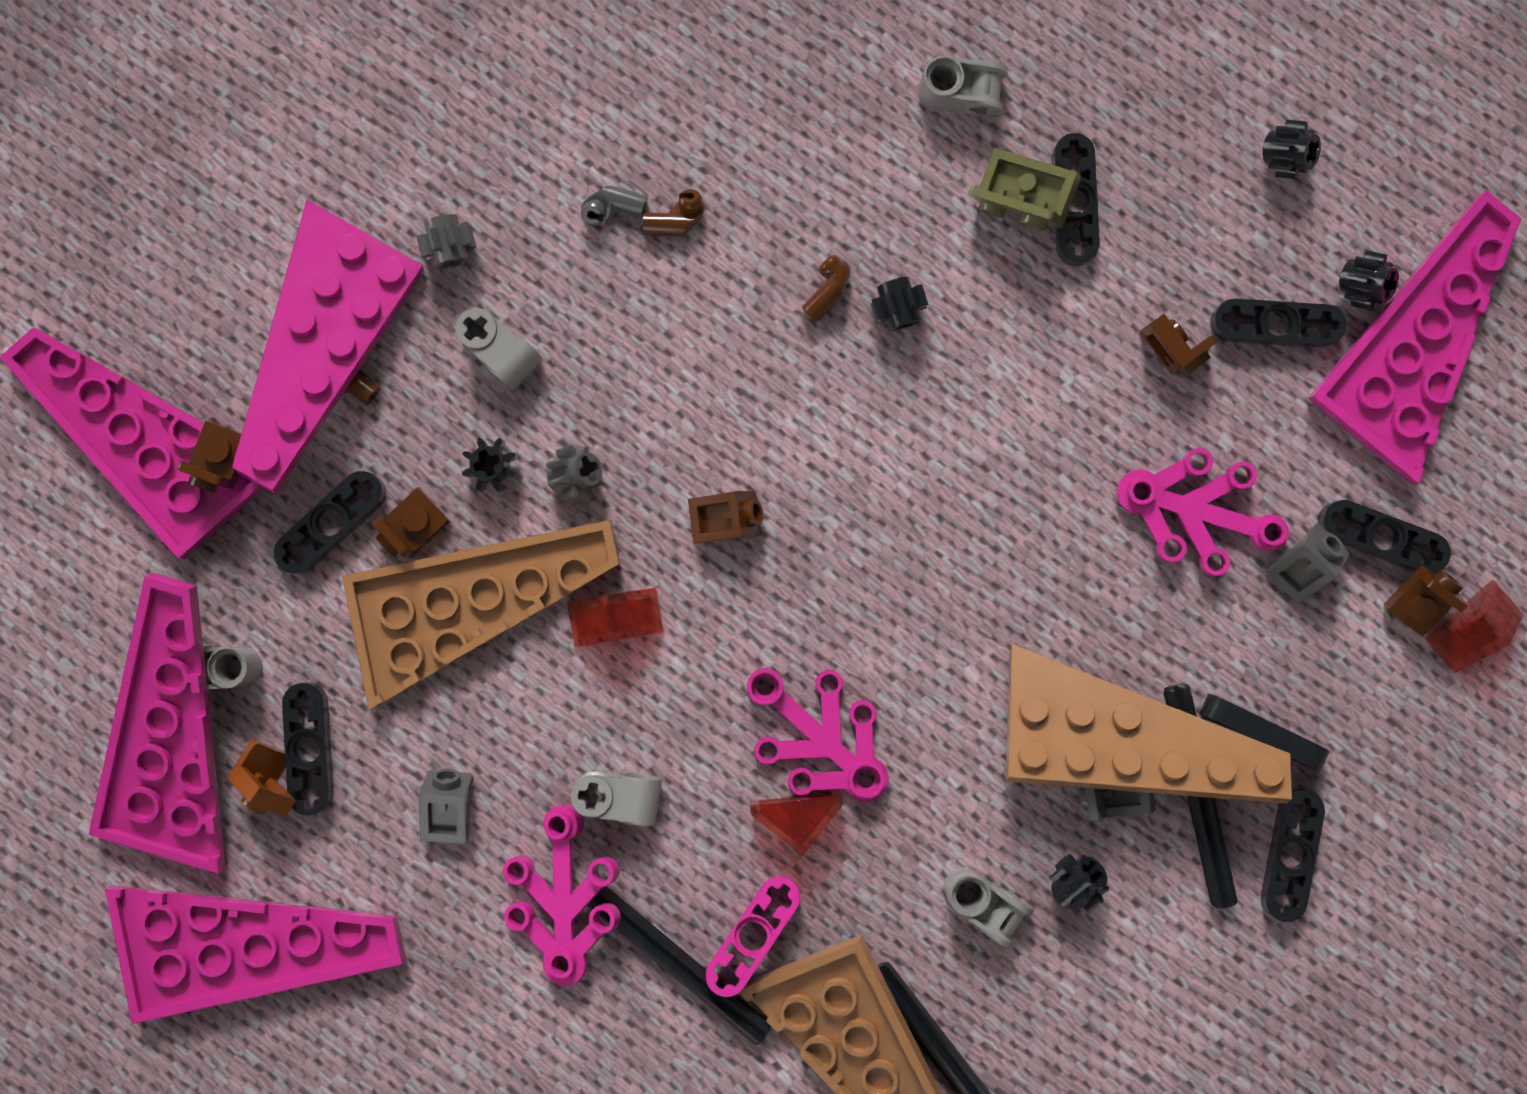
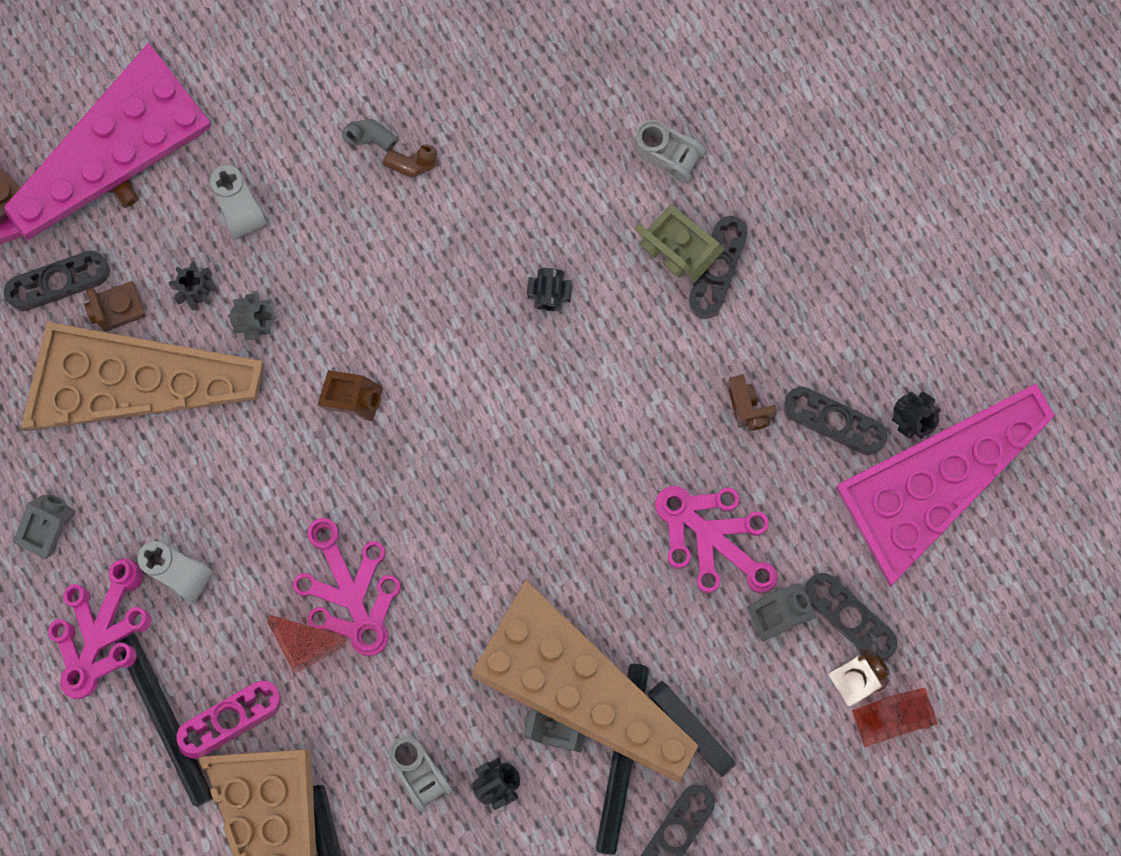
camera: 25 degrees right, 10 degrees down
(446, 241) = (234, 112): dark grey gear -> none
(615, 617) = (235, 436): clear red slope -> none
(831, 291) = (504, 260): reddish brown arm -> none
(1291, 149) = (896, 293): black gear -> none

